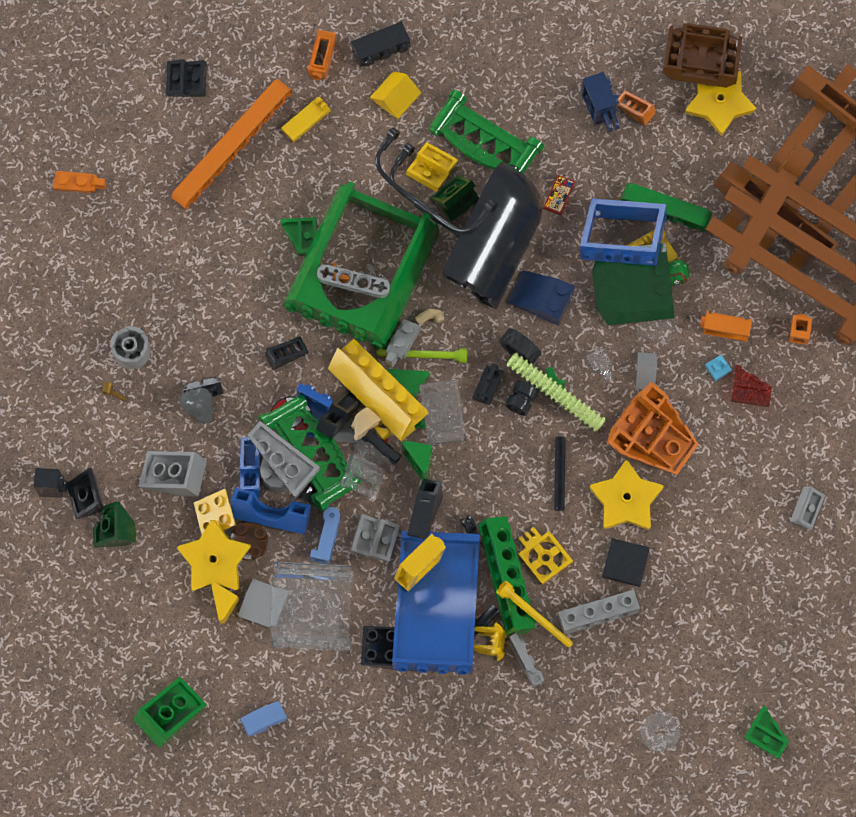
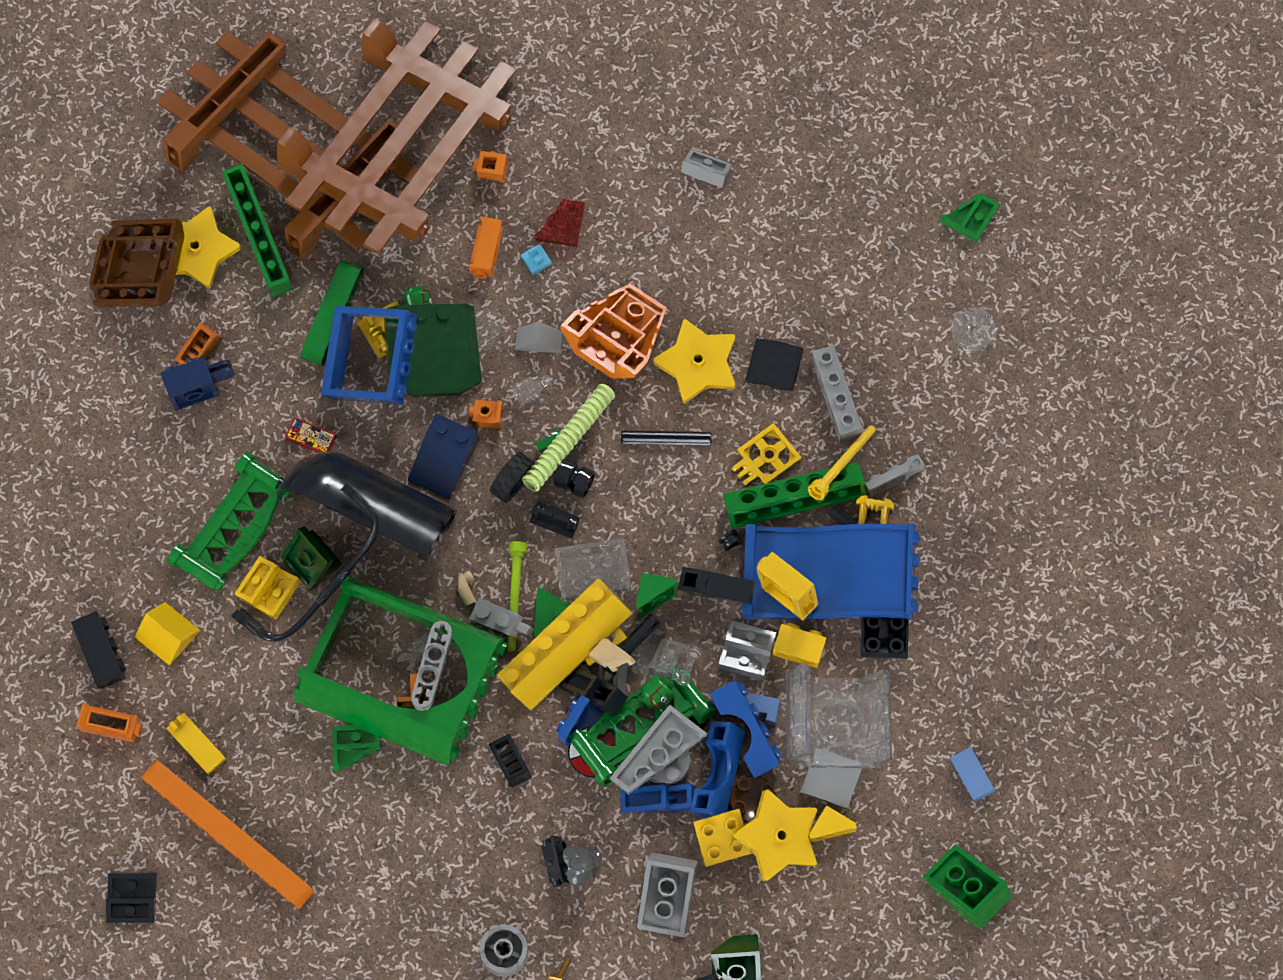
camera: 90 degrees left, 0 degrees up
(324, 521) = (732, 700): none -> blue arch
(333, 460) = (657, 692): none -> green head
(376, 579) = (799, 645): none -> yellow brick
(578, 335) = (490, 420): none -> orange brick
(735, 145) = (257, 230): none -> green brick

